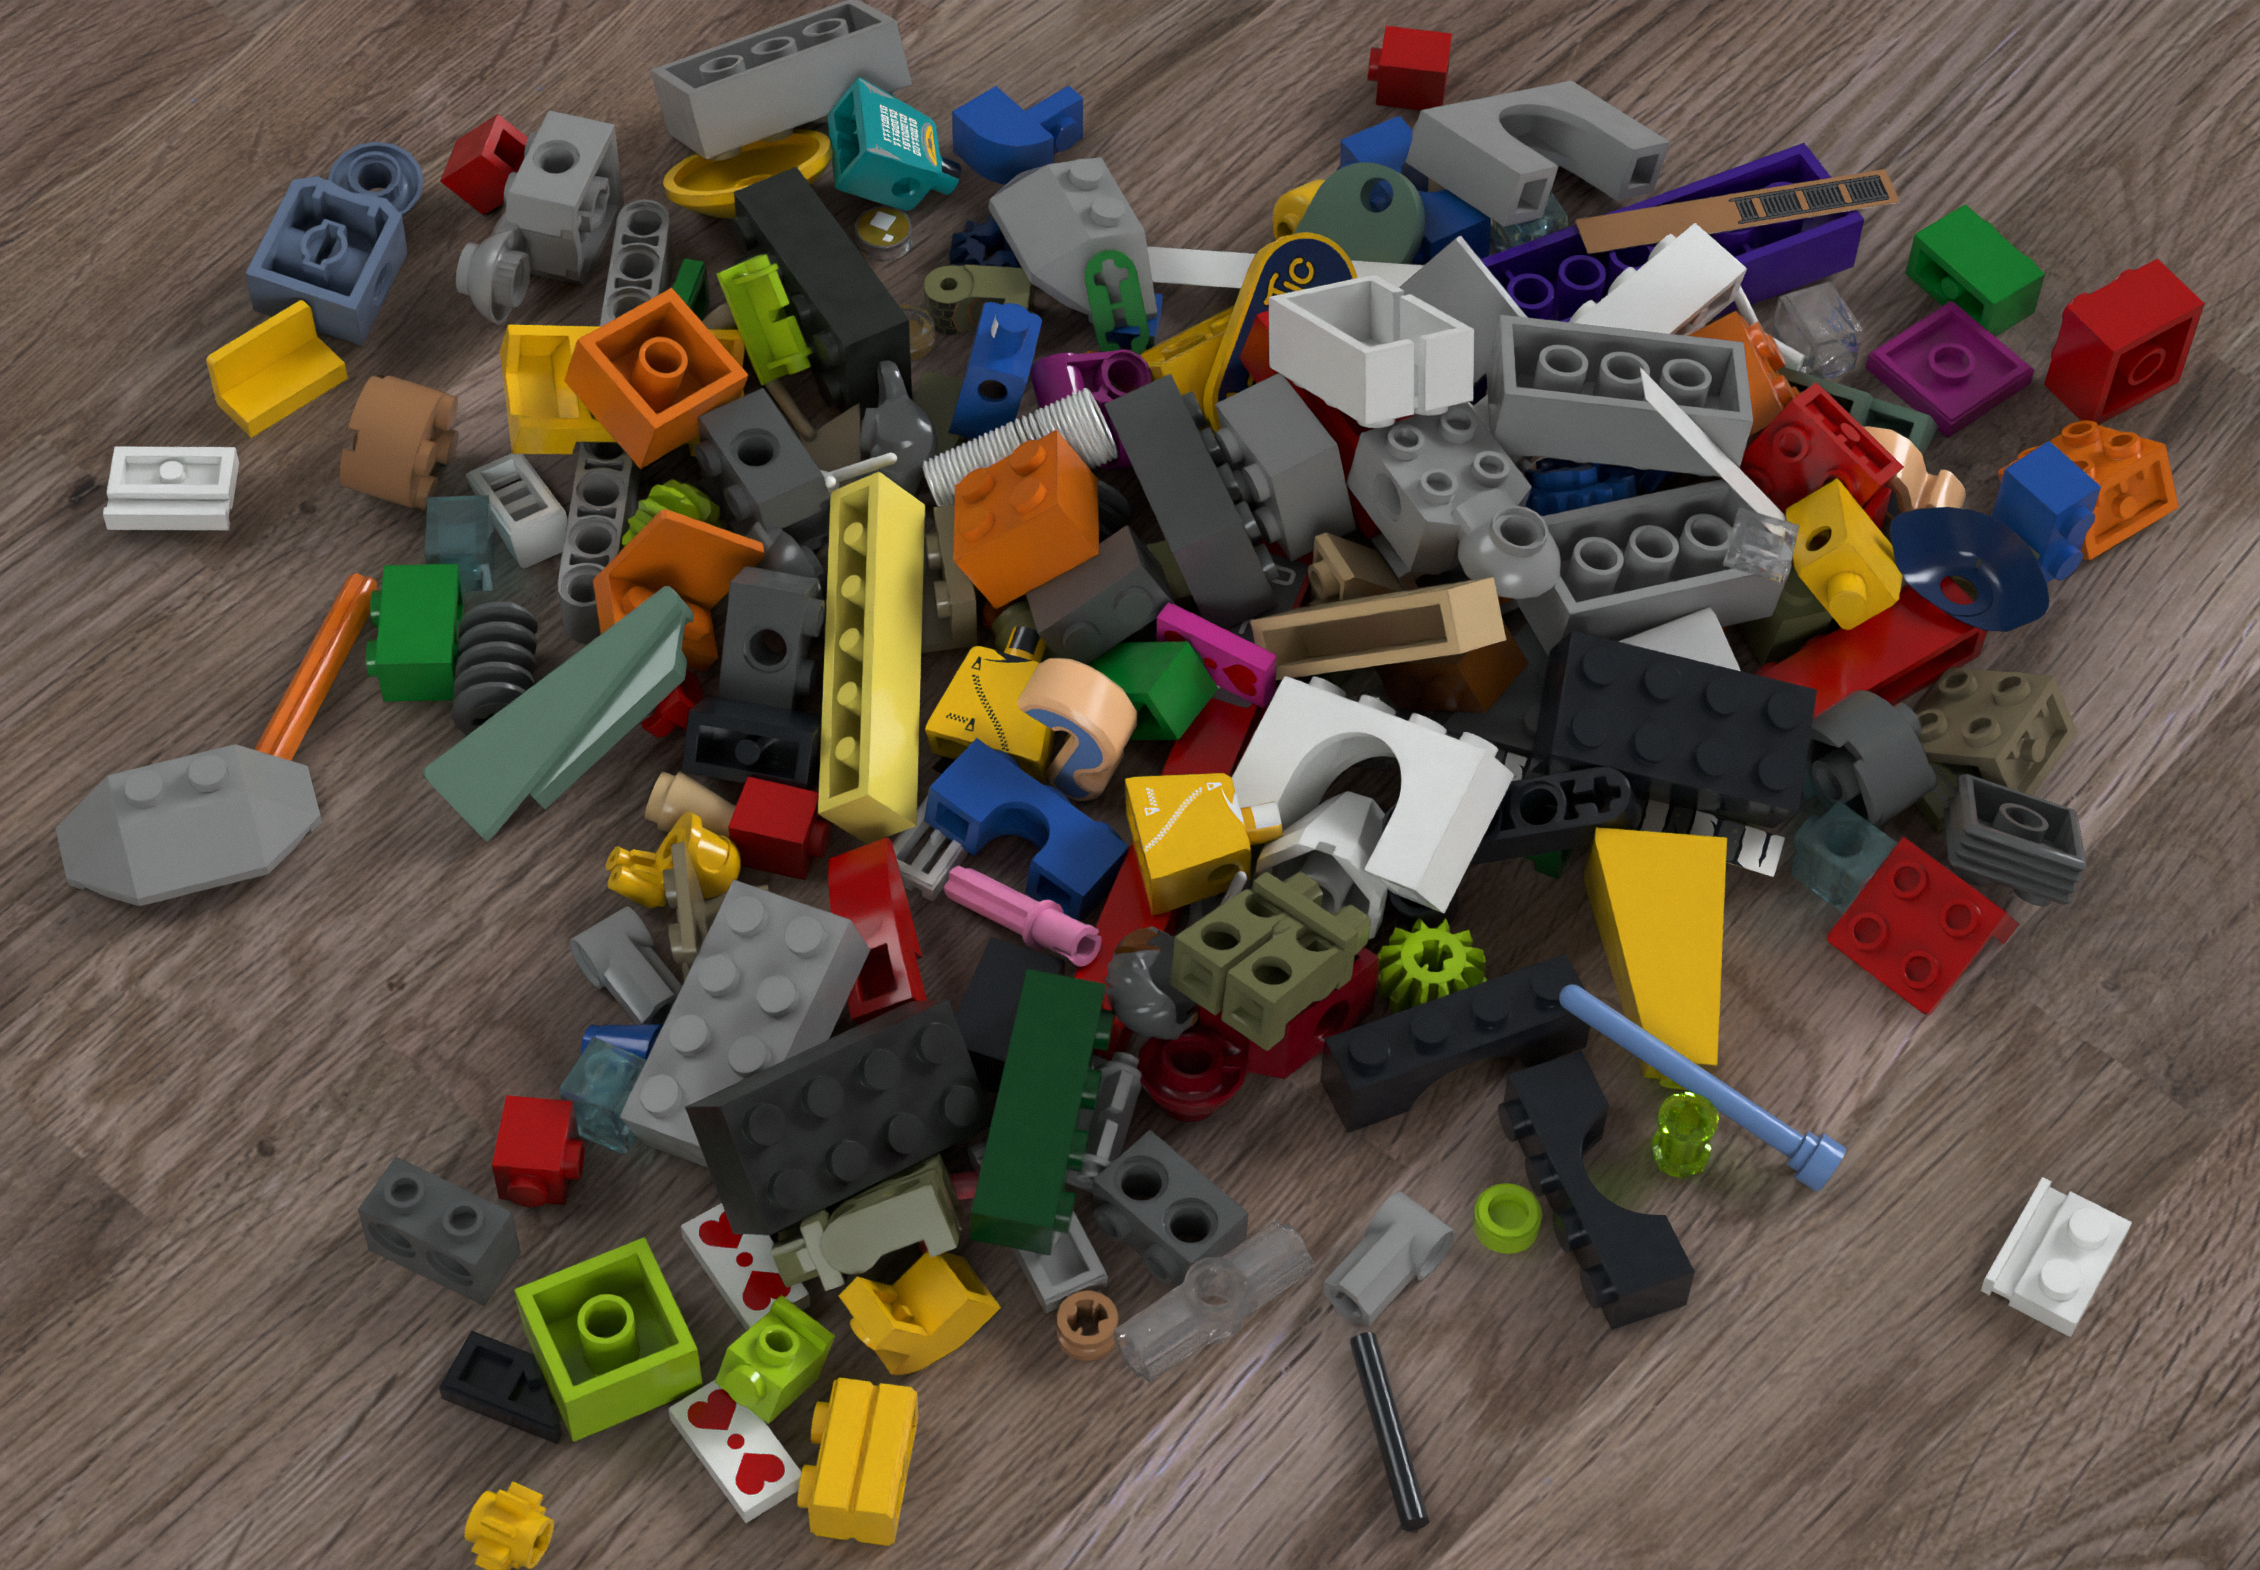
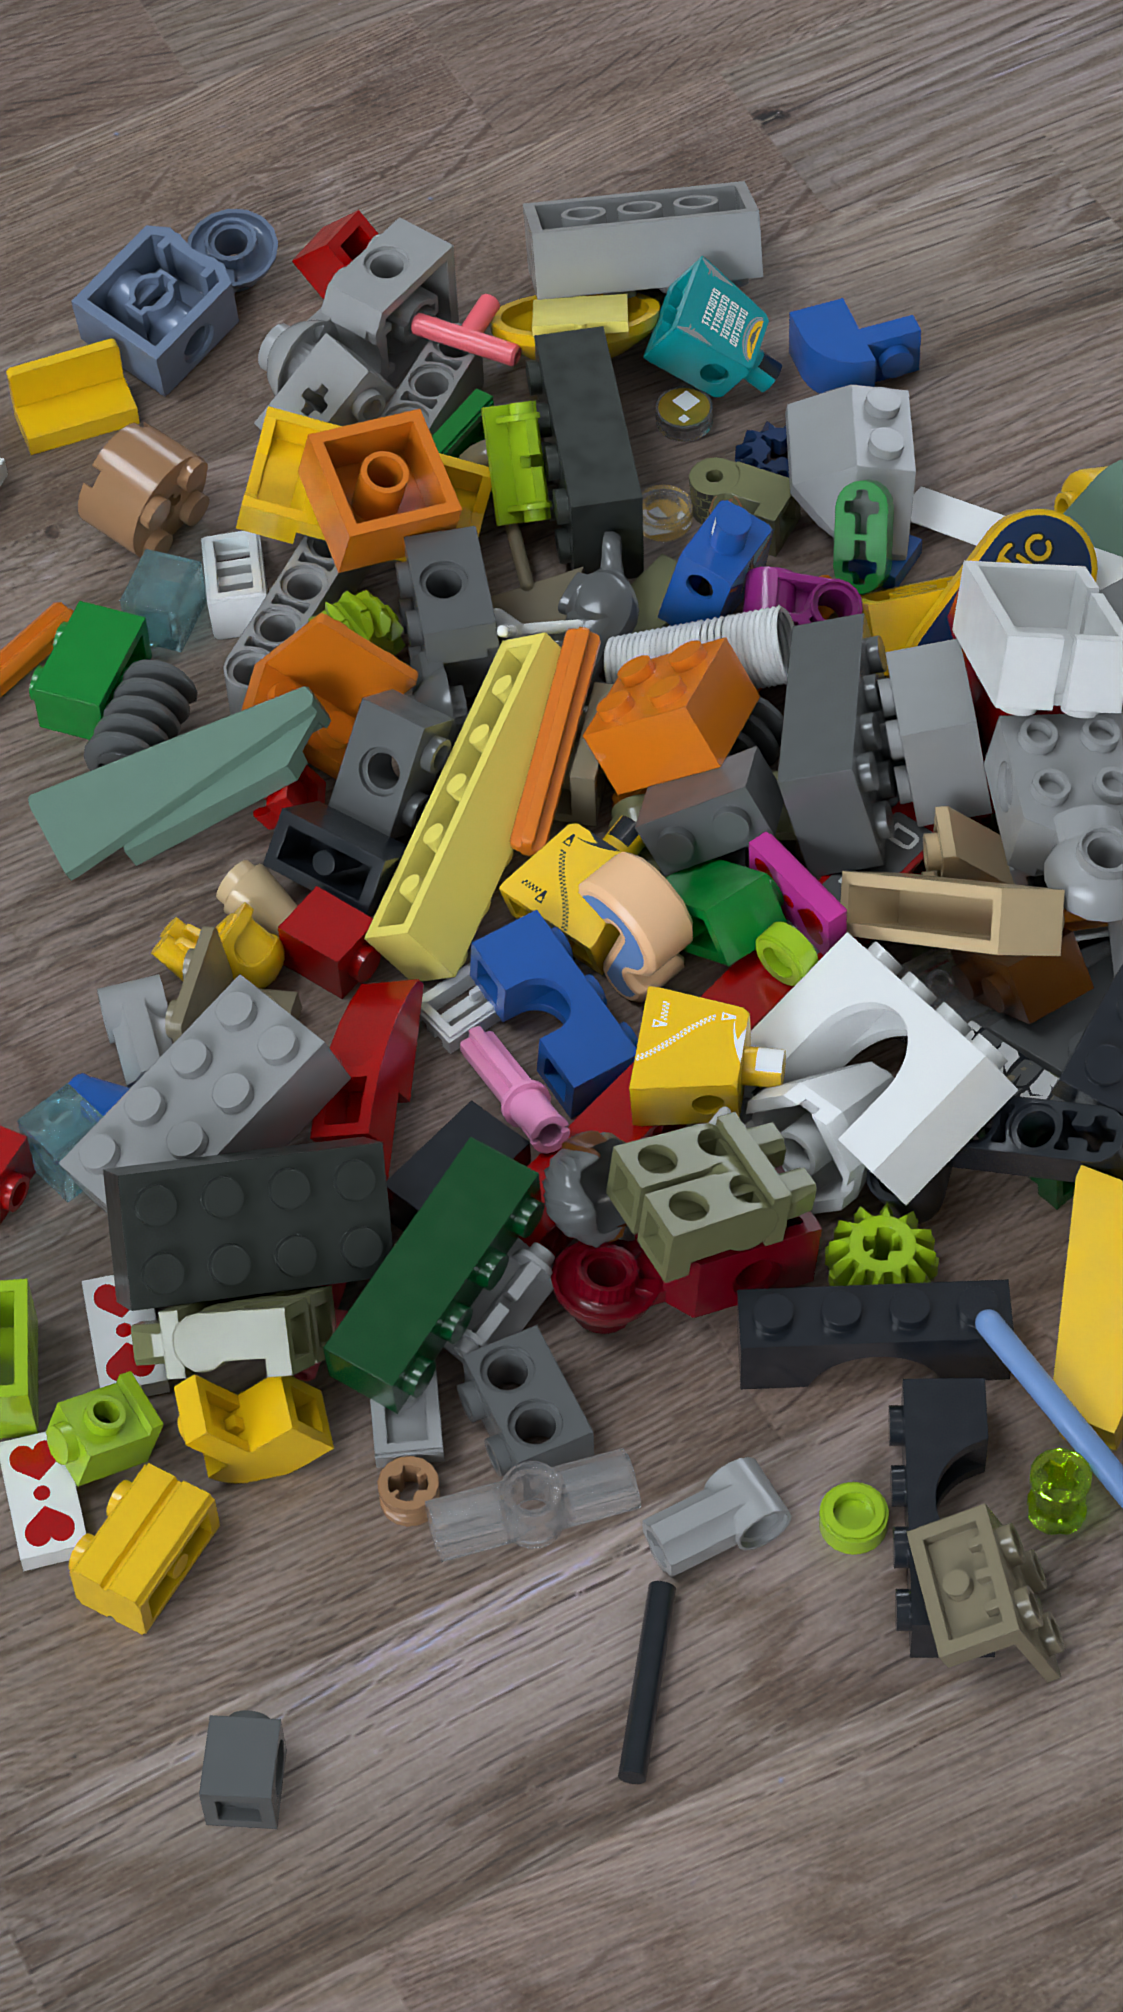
camera: 25 degrees right, 0 degrees up
(542, 284) = (333, 387): none -> light grey brick
(657, 207) = (470, 335): none -> coral piece
(759, 161) = (580, 313): none -> light yellow piece
(924, 574) = (555, 741): none -> orange axle
(1231, 712) = (785, 953): none -> lime tile
(1665, 1244) = (984, 1591): none -> dark tan bracket

